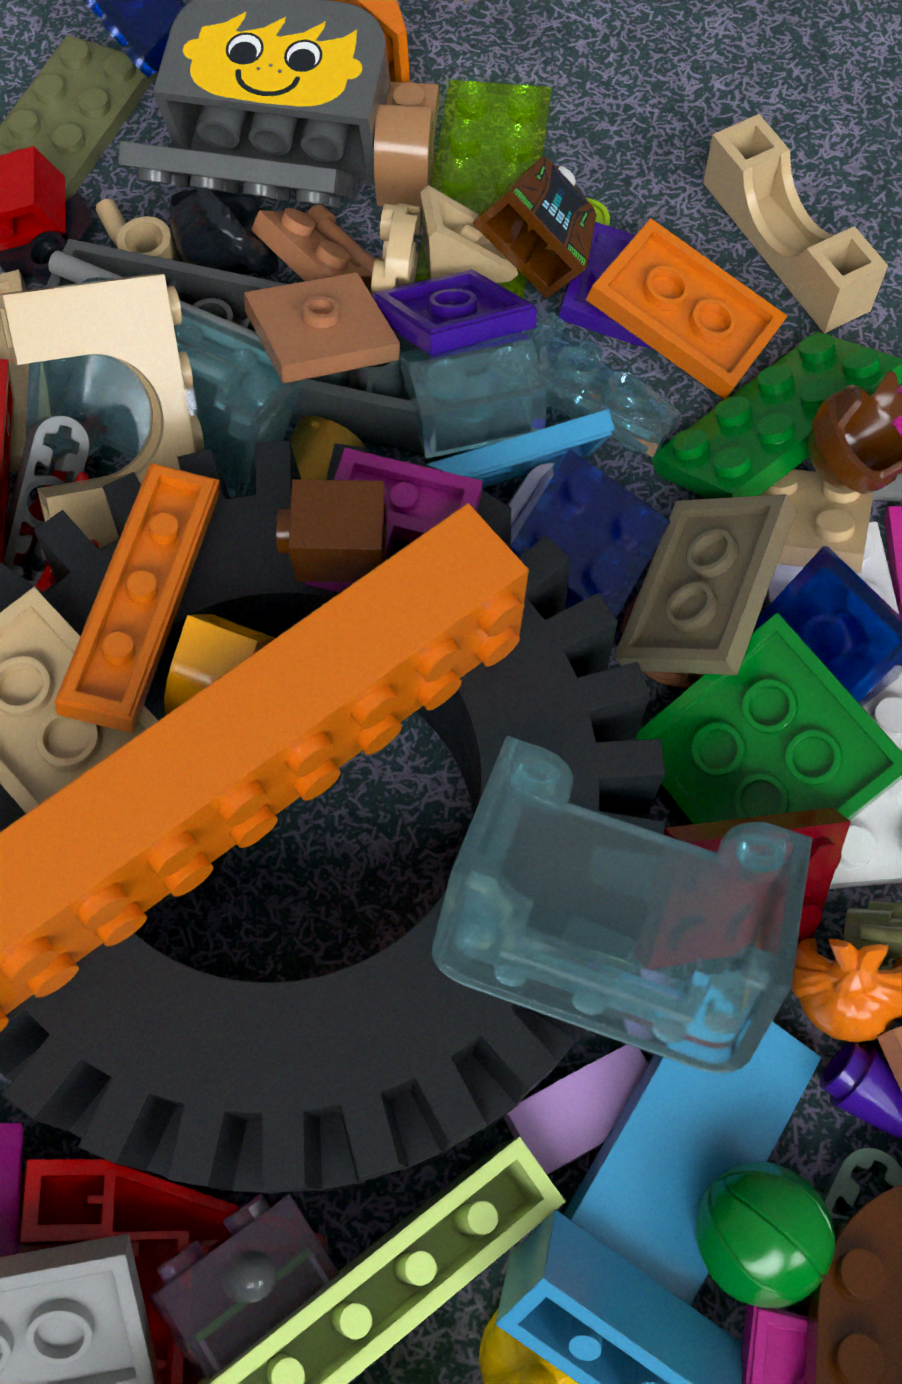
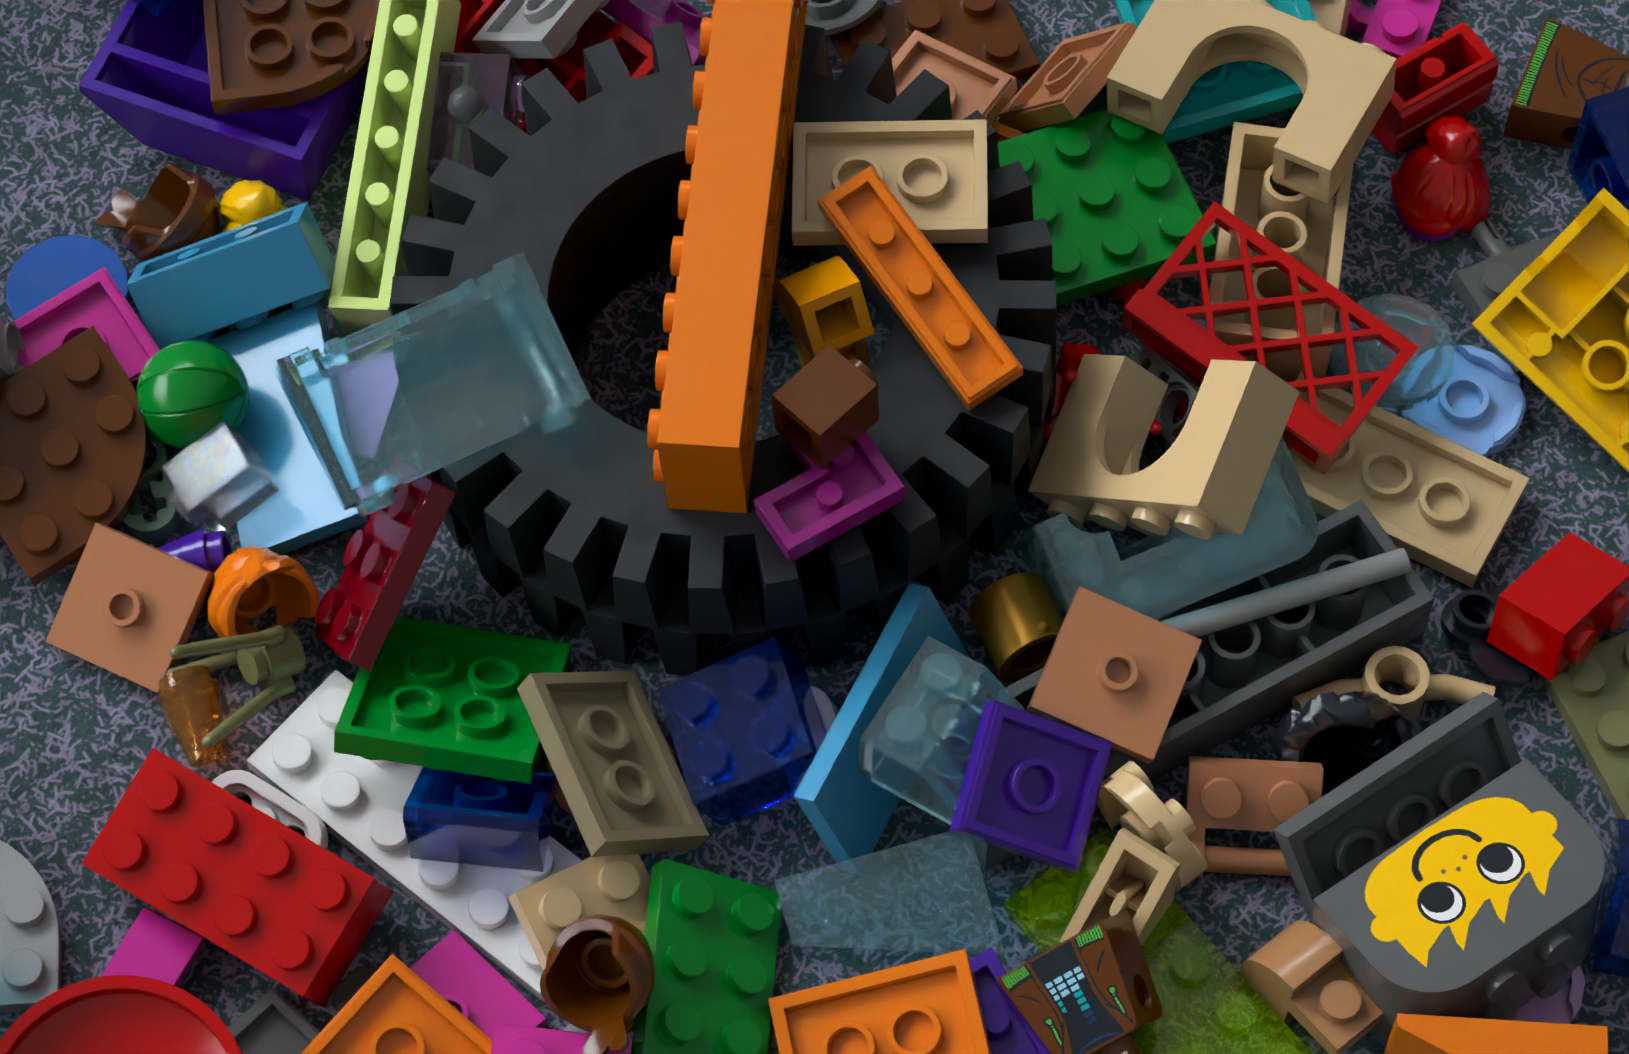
camera: 130 degrees right, 5 degrees down
(798, 1131) = (219, 479): none -> clear brick

